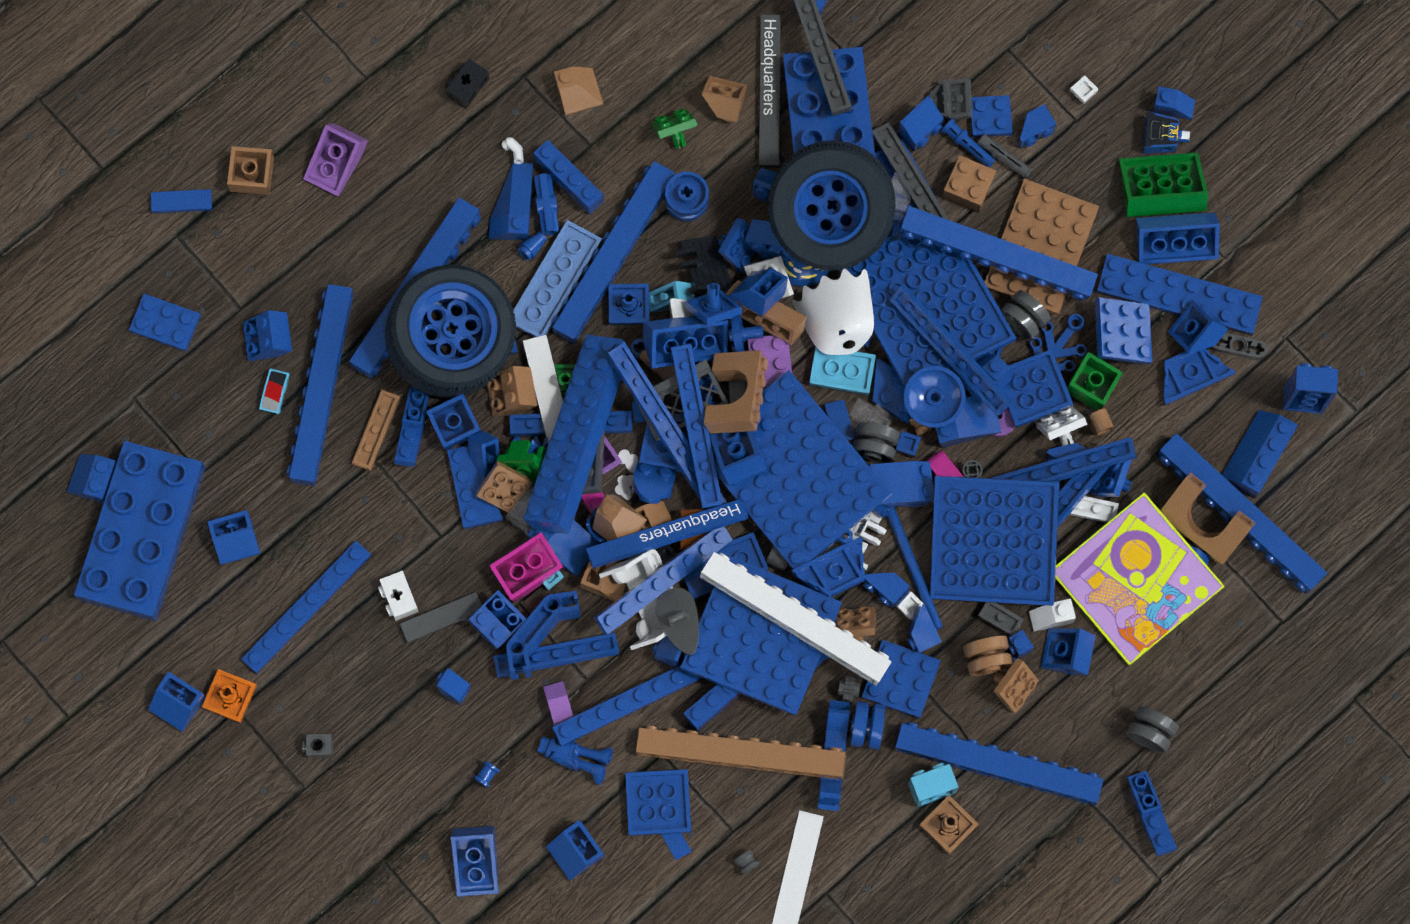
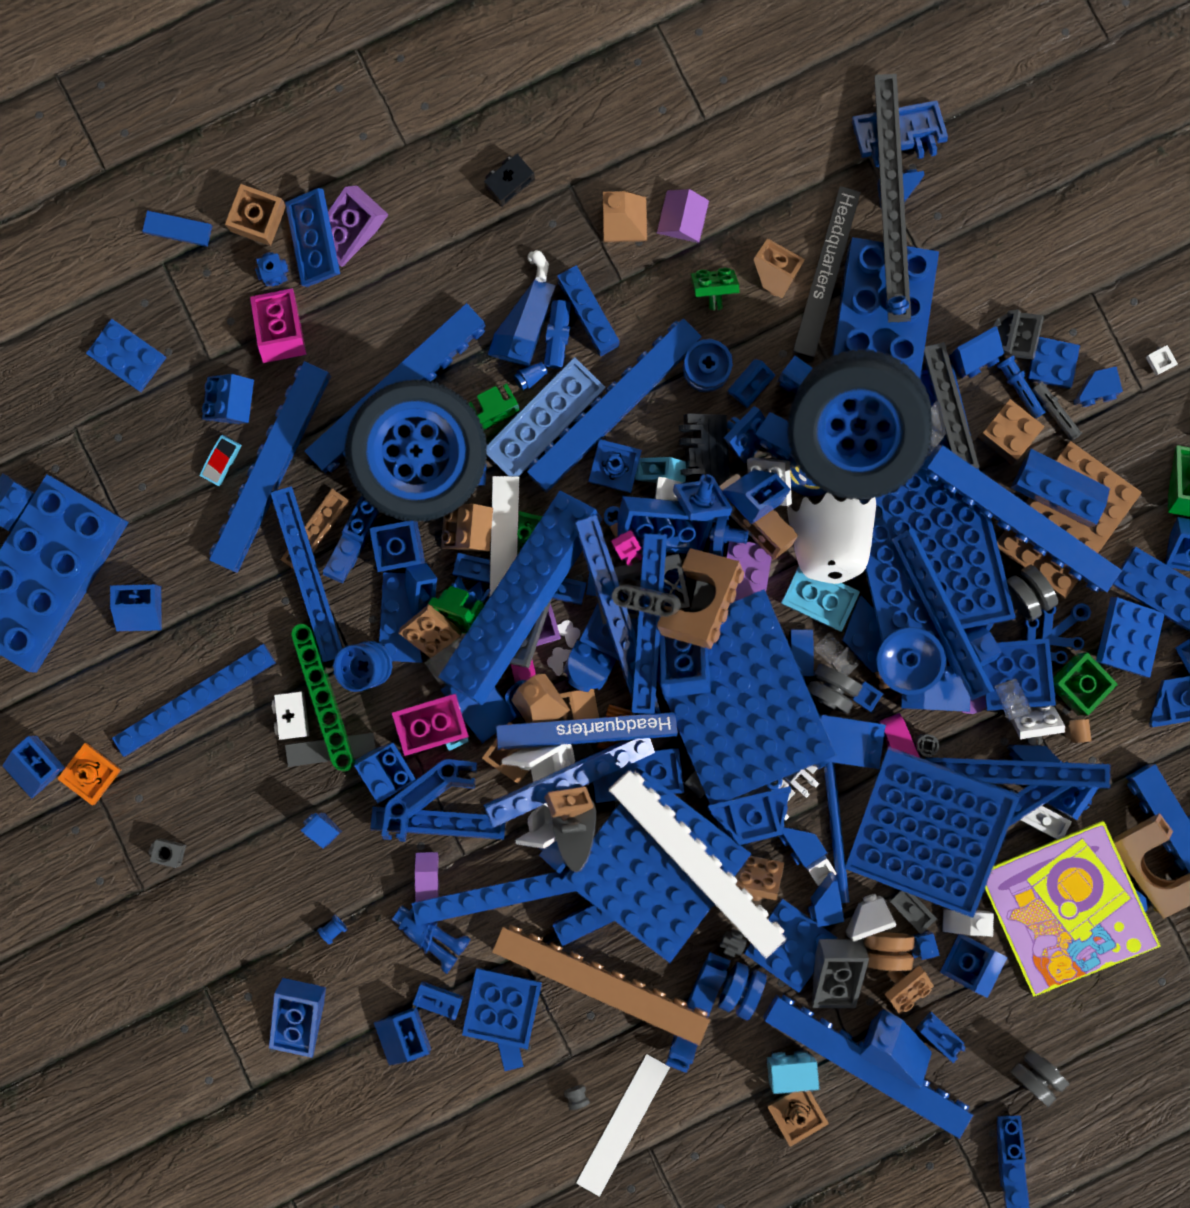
camera: 15 degrees right, 10 degrees up
(280, 219) = (277, 274): none -> blue brick
(295, 261) = (277, 325): none -> dark pink slope
(306, 177) = (312, 237): none -> blue plate
(380, 468) = (307, 573): none -> blue plate
(418, 563) = (330, 705): none -> green beam
(442, 535) = (353, 670): none -> blue wheel
(511, 279) = (494, 407): none -> green panel
(599, 812) = (438, 1000): none -> blue hinge
(629, 74) = (683, 215): none -> medium lavender slope
(659, 363) = (627, 547): none -> dark pink plate
(668, 597) = (569, 802): none -> medium nougat slope
(697, 403) = (635, 600): none -> dark grey beam
(730, 202) = (751, 382): none -> blue slope
(836, 98) = (897, 305): none -> blue plate
(949, 689) = (838, 973): none -> dark grey slope
(964, 631) = (870, 918): none -> white slope
(1019, 739) = (896, 1049): none -> blue slope
(1026, 220) = (1061, 488): none -> blue slope
(1034, 408) = (1012, 699): none -> clear slope
(1056, 722) = (941, 1036): none -> blue hinge

